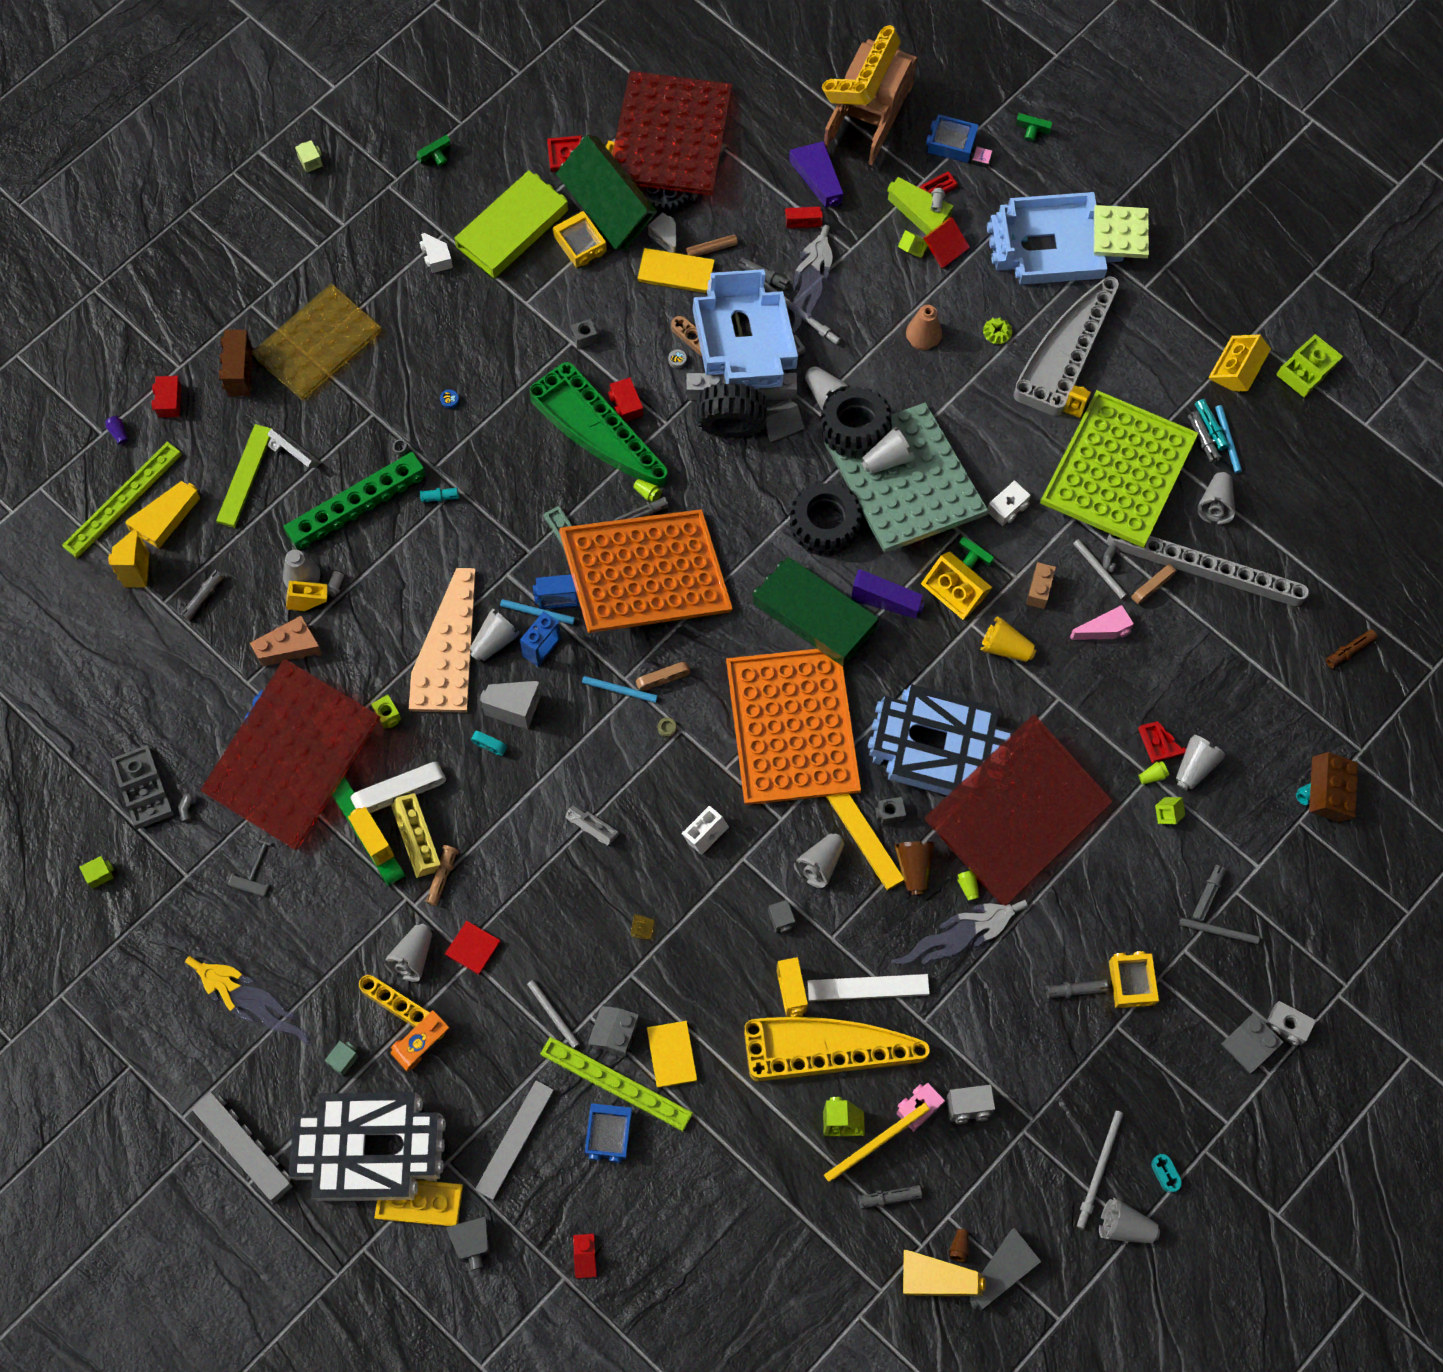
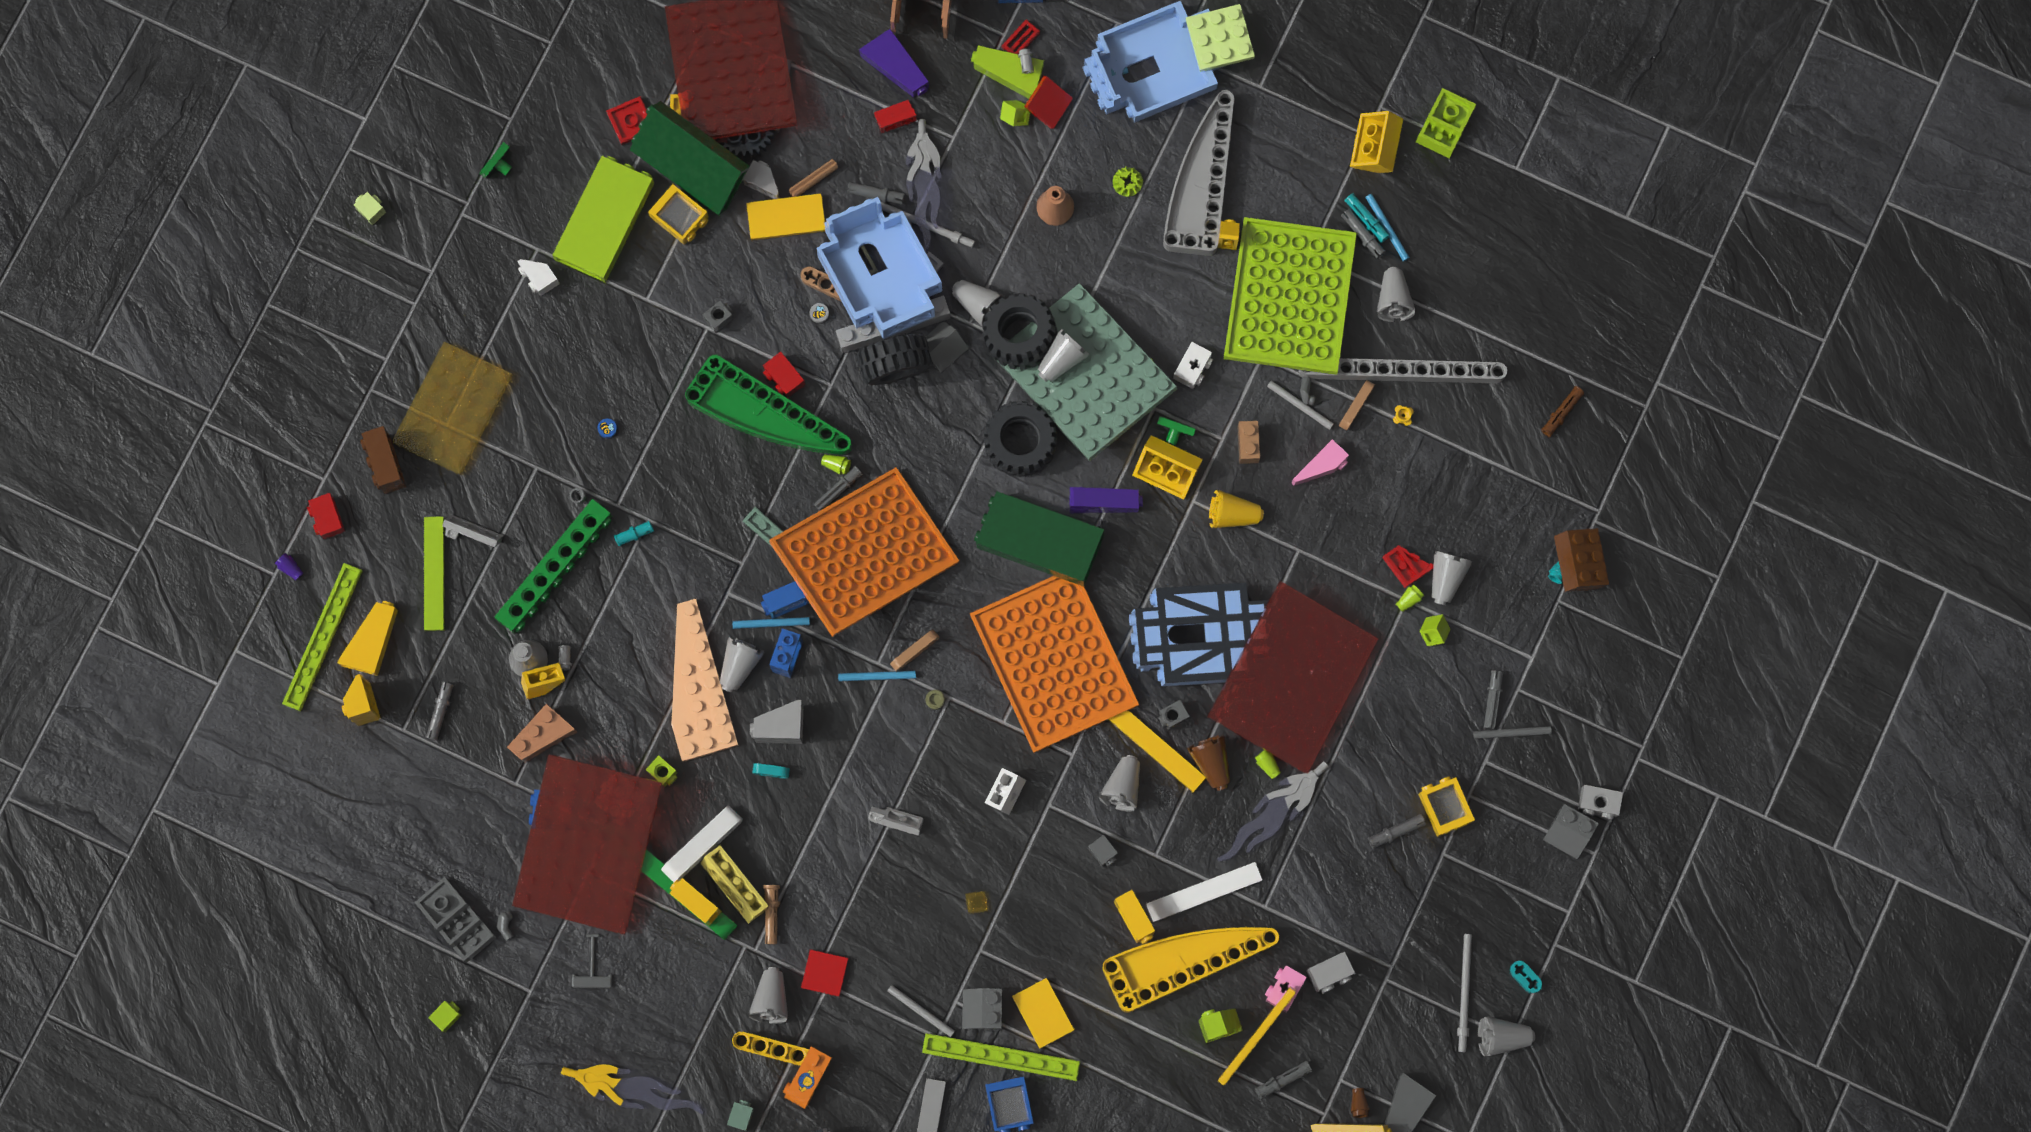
camera: 15 degrees left, 10 degrees up
(1193, 601) = (1403, 410): none -> yellow plate

